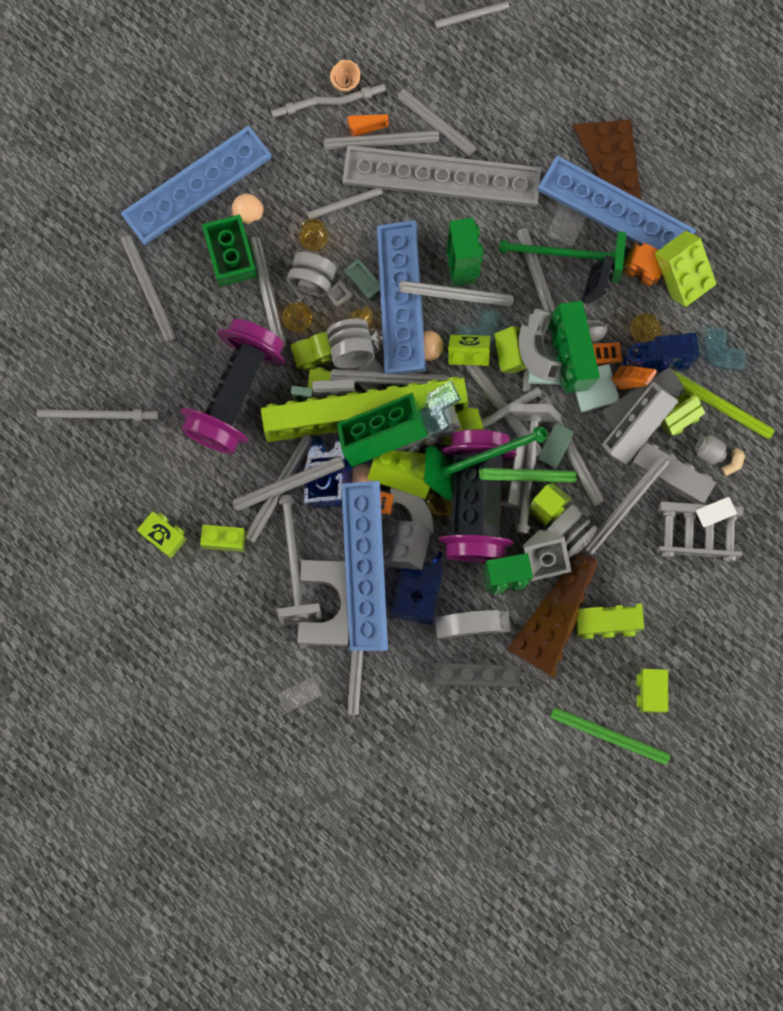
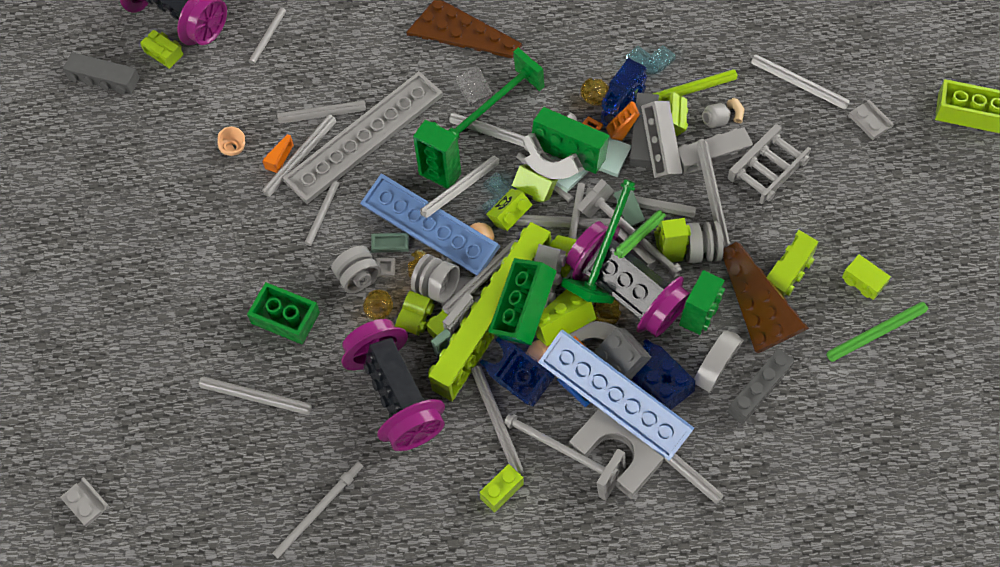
camera: 45 degrees left, 15 degrees down
(161, 534) = (458, 532): lime brick -> none
(196, 185) = (210, 302): medium blue plate -> none
(248, 207) = (260, 275): light nougat hair -> none
(266, 288) = (333, 311): light grey axle -> none
(288, 483) = (501, 405): light grey axle -> none
(291, 108) = (217, 195): light grey bar -> none
(300, 694) = (674, 525): clear plate -> none
(310, 229) = (324, 243): clear yellow hair -> none
(434, 408) = (536, 248): clear light blue plate -> none
(547, 555) = (710, 260): light grey slope -> none
(597, 279) = (532, 92): black plate -> none
(609, 205) = (493, 47): medium blue plate -> none
(642, 263) = (549, 56): orange brick -> none
(685, 268) = (575, 34): lime brick -> none
(716, 512) = (766, 141): white sticker -> none

